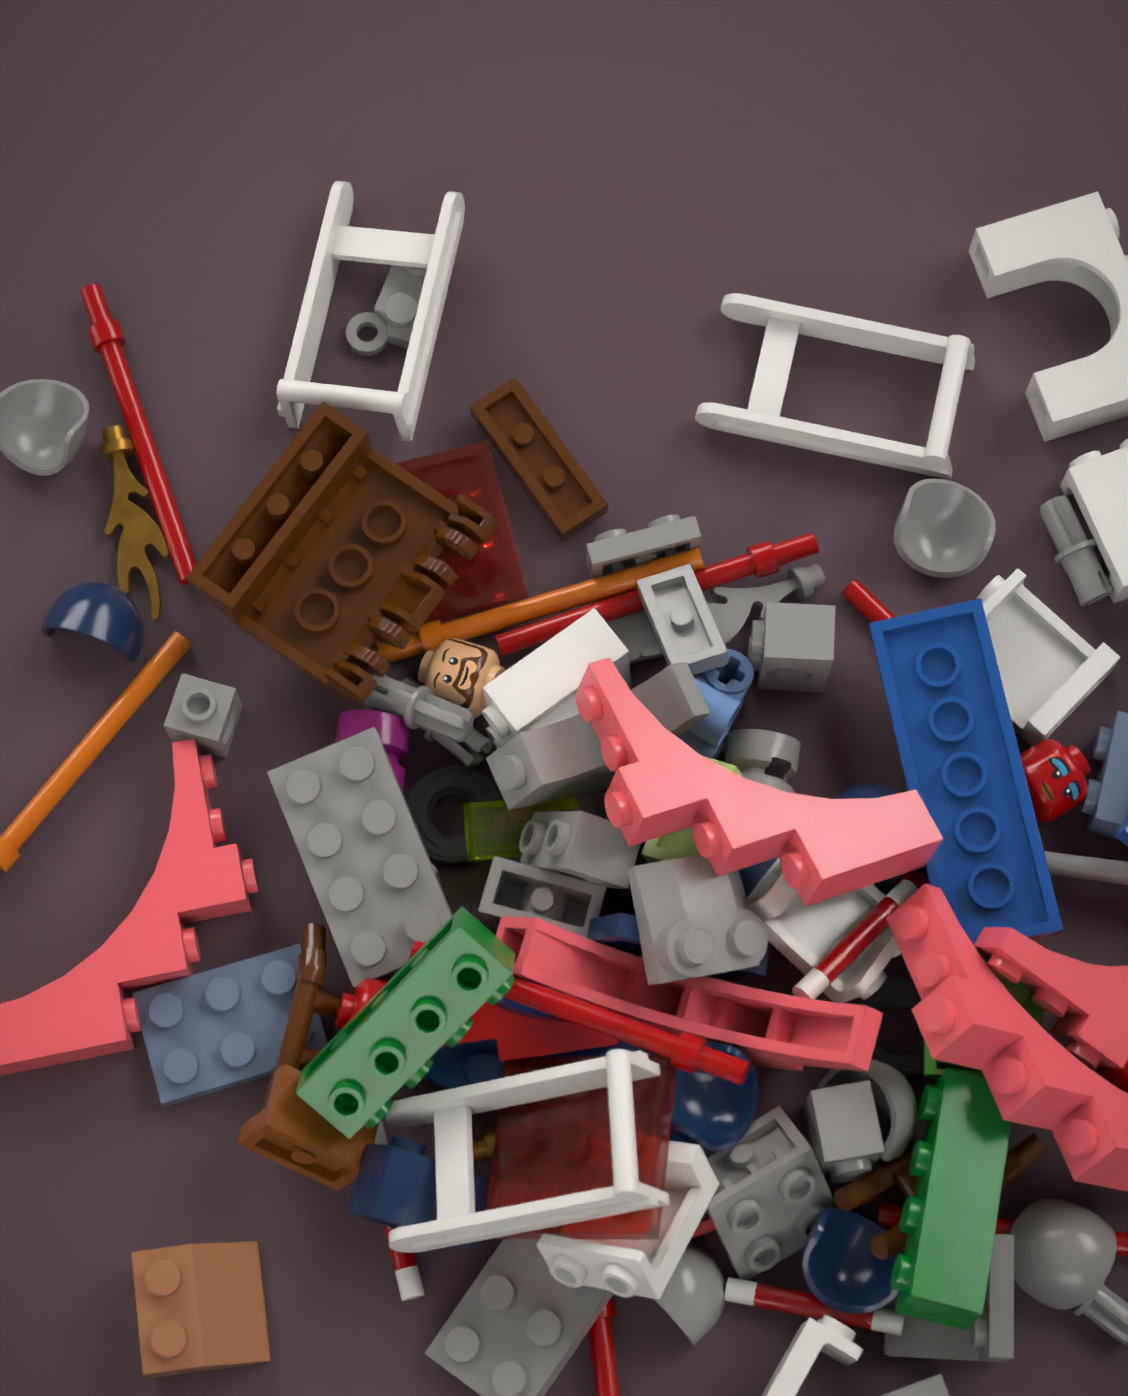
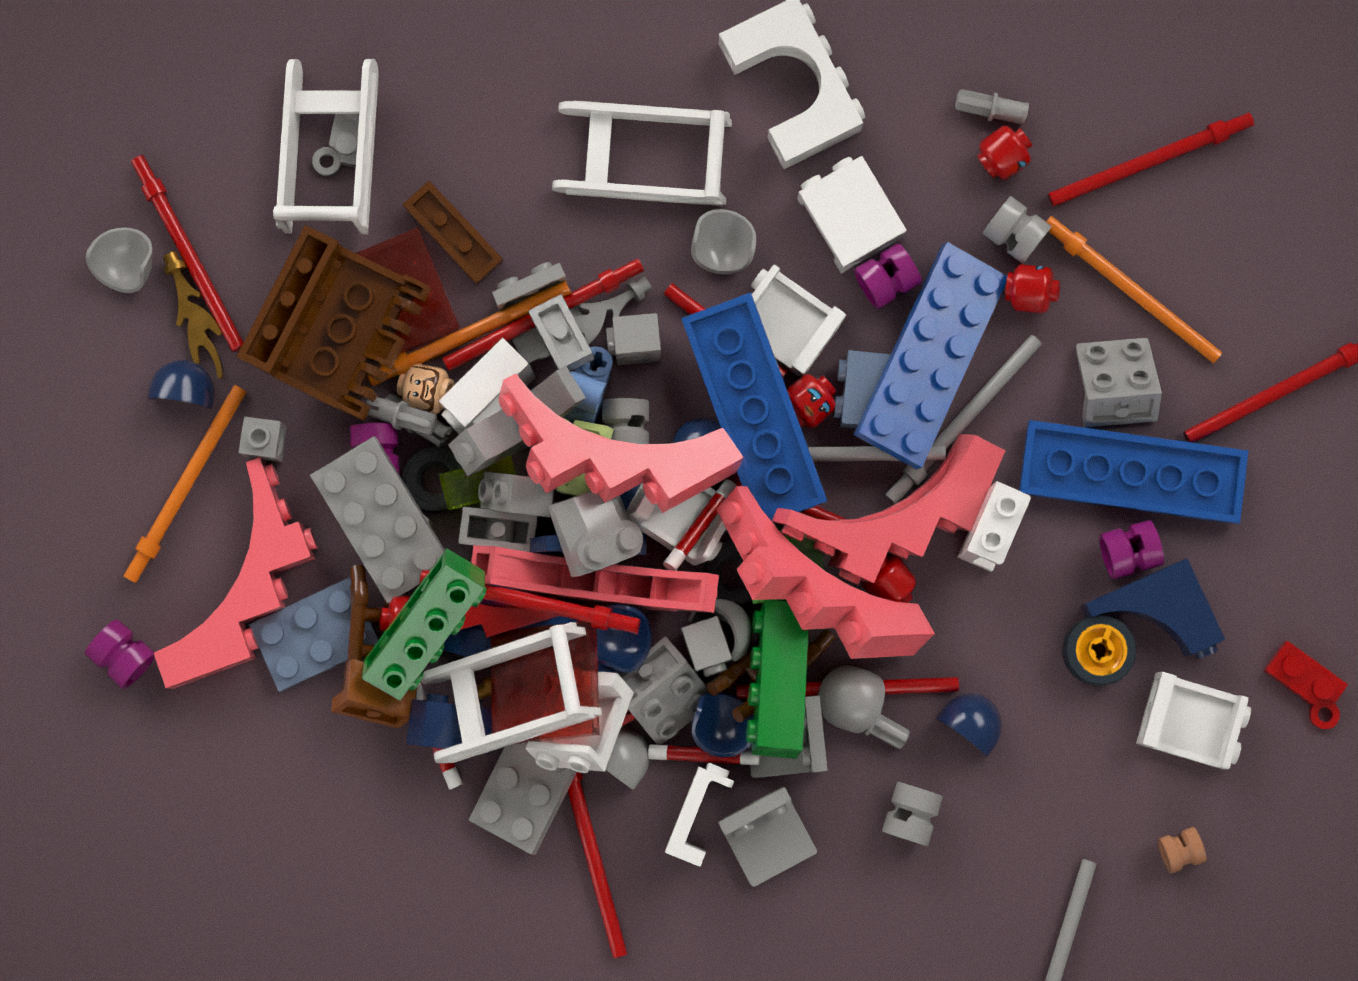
camera: 10 degrees left, 10 degrees up
(200, 1307) = (325, 813): nougat slope -> none
(1075, 551) = (811, 244): light grey axle -> none

